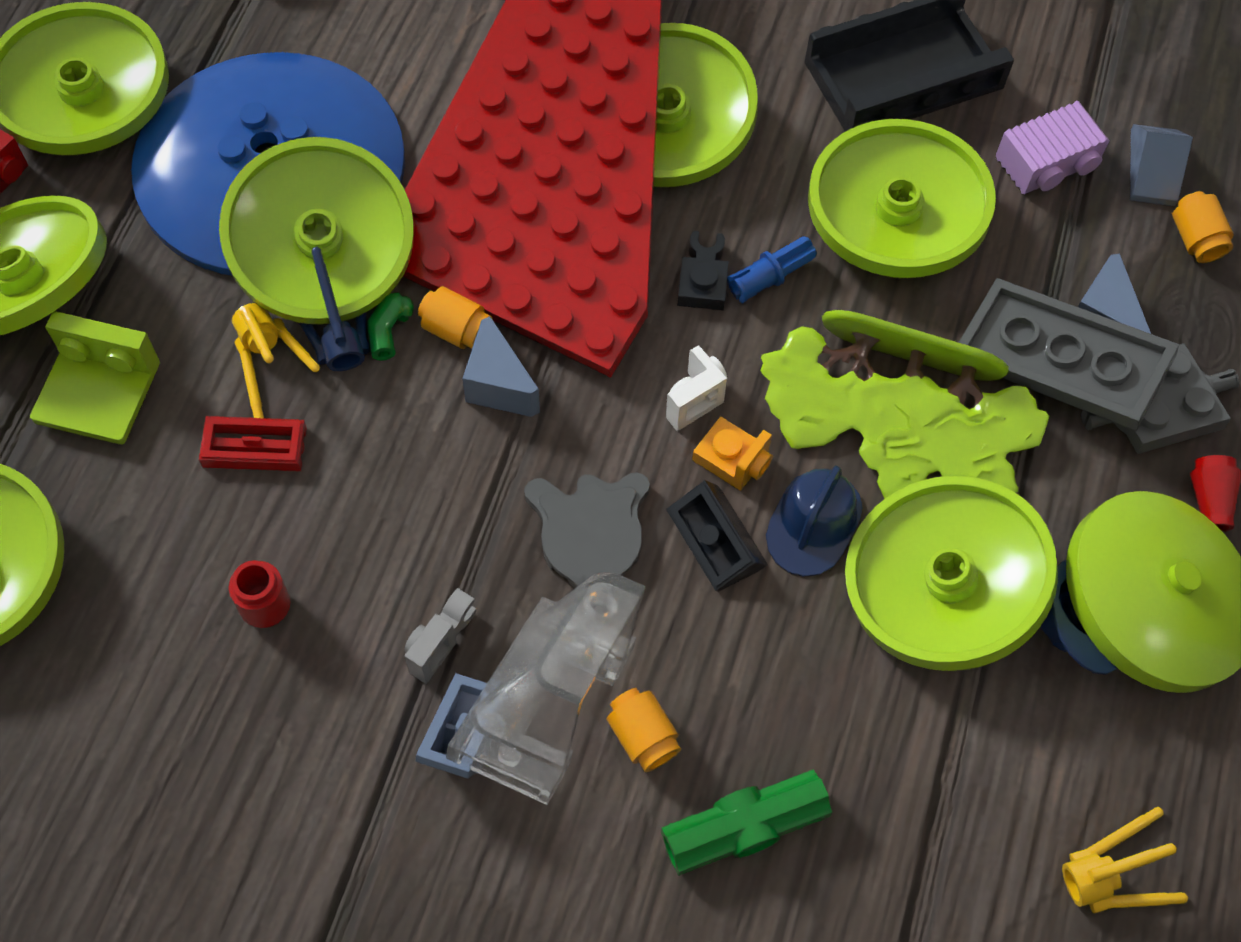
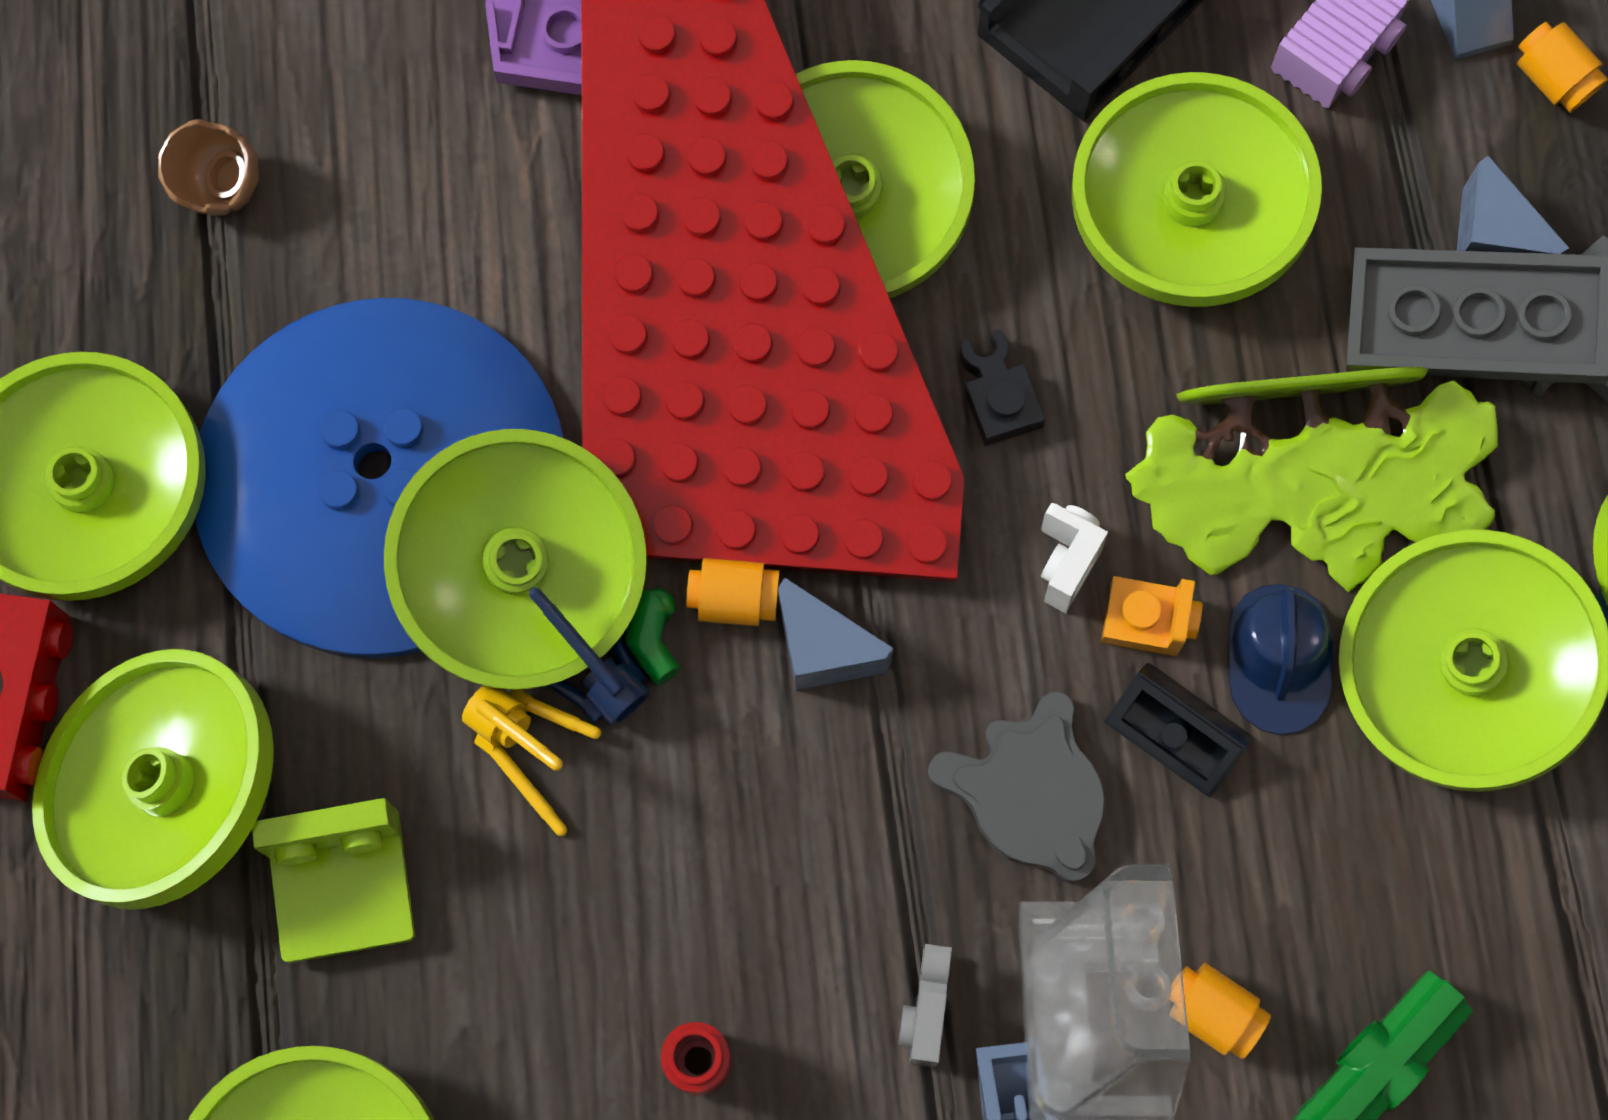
camera: 20 degrees left, 10 degrees up
(283, 455) = (581, 888): red tile -> none
(771, 269) = (1080, 350): blue axle -> none

